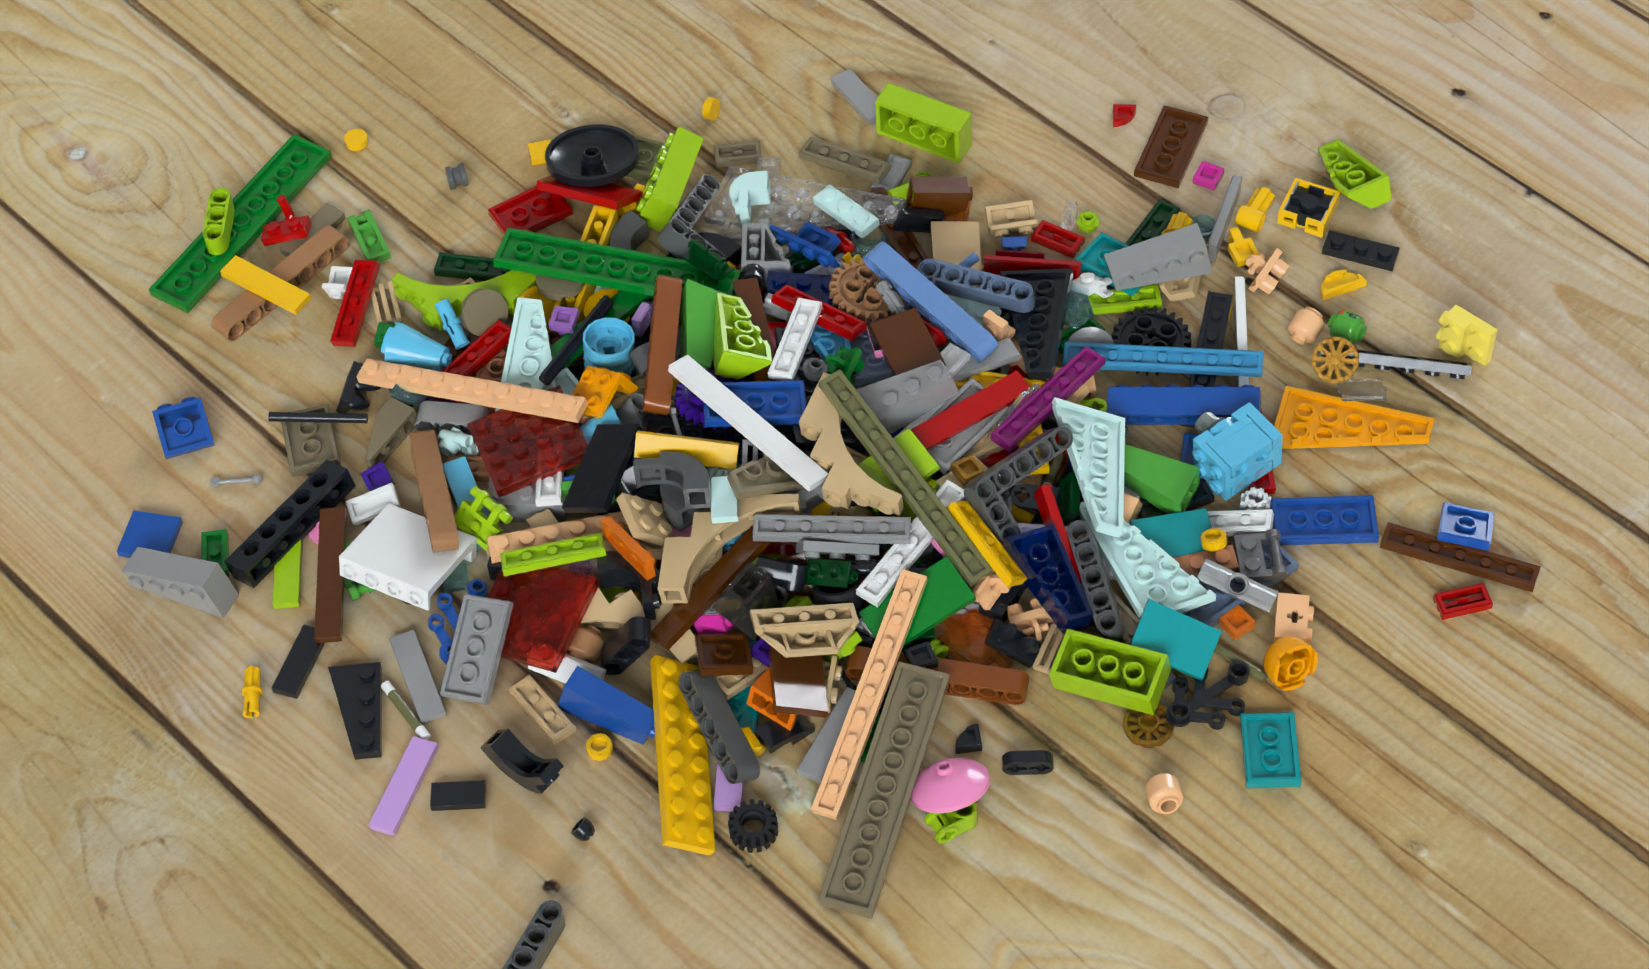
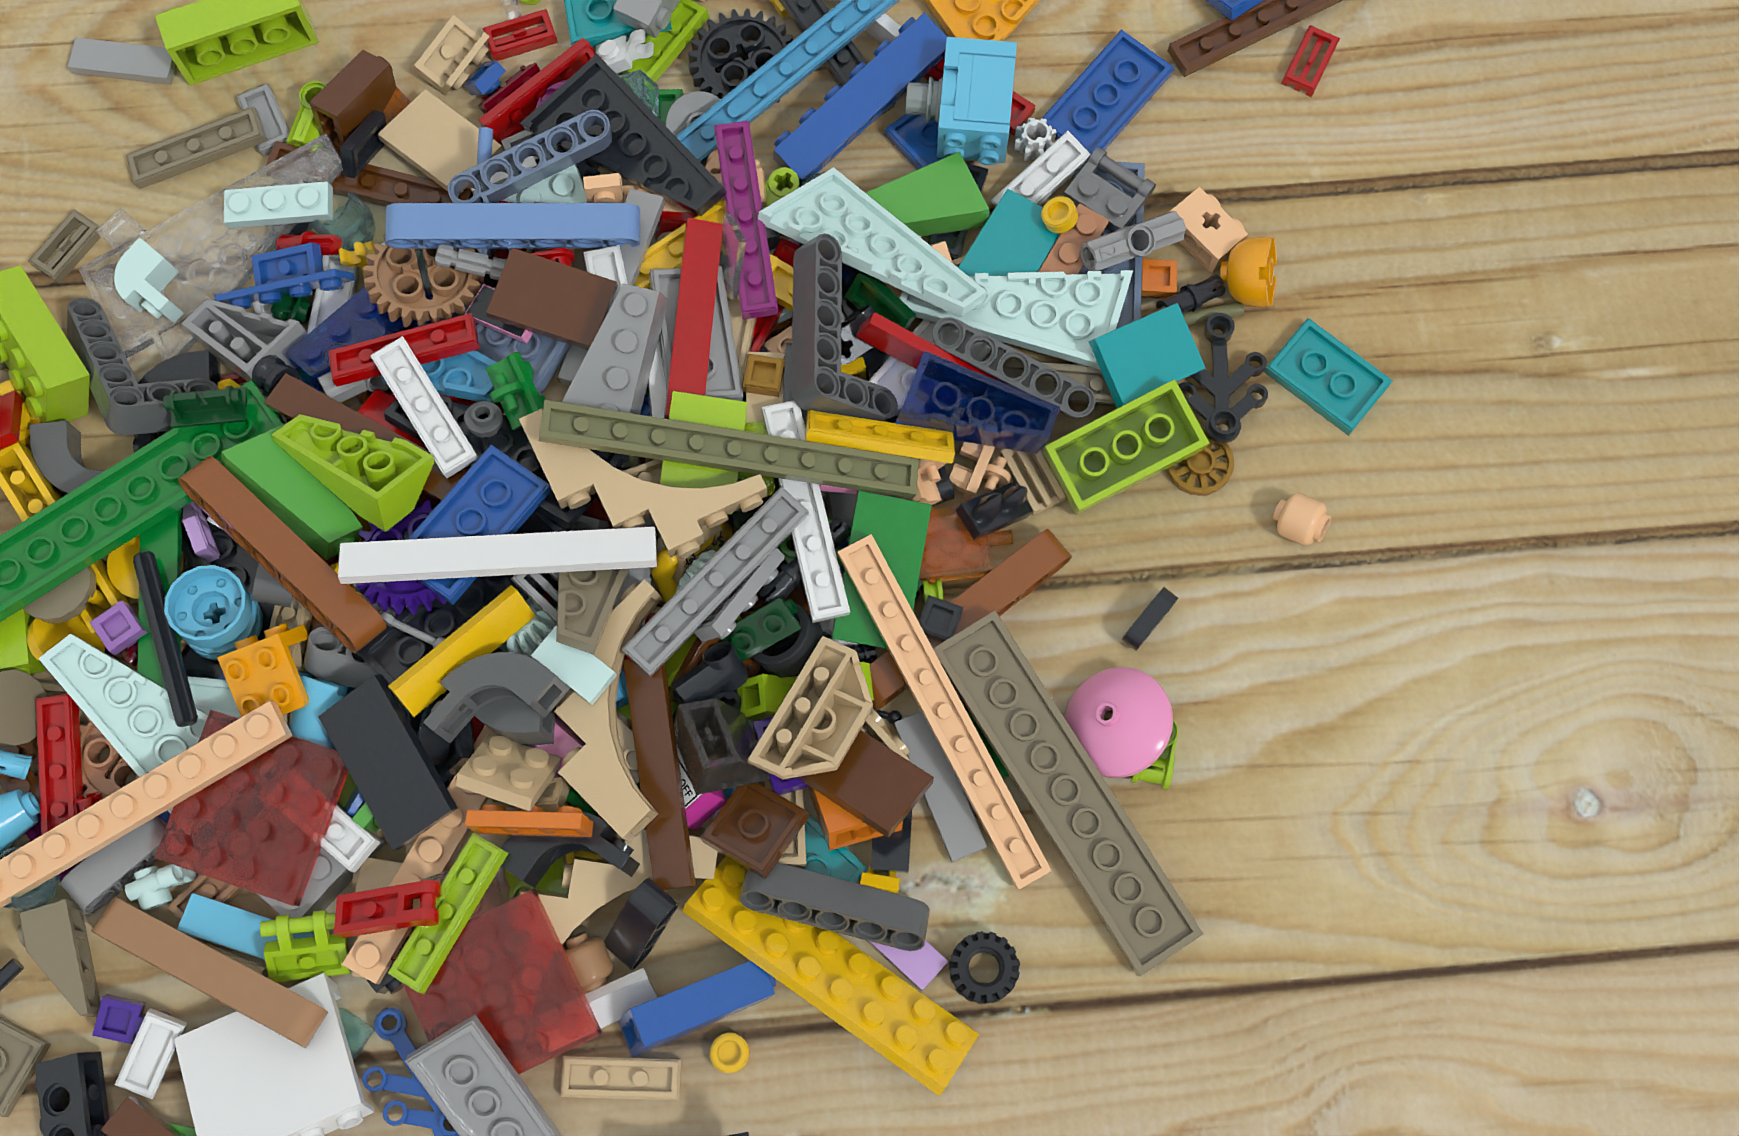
camera: 55 degrees left, 20 degrees up
(531, 527) = (387, 909): none -> red plate
(969, 740) = (1066, 652): black tile -> none
(1242, 645) = (1193, 296): none -> black pin

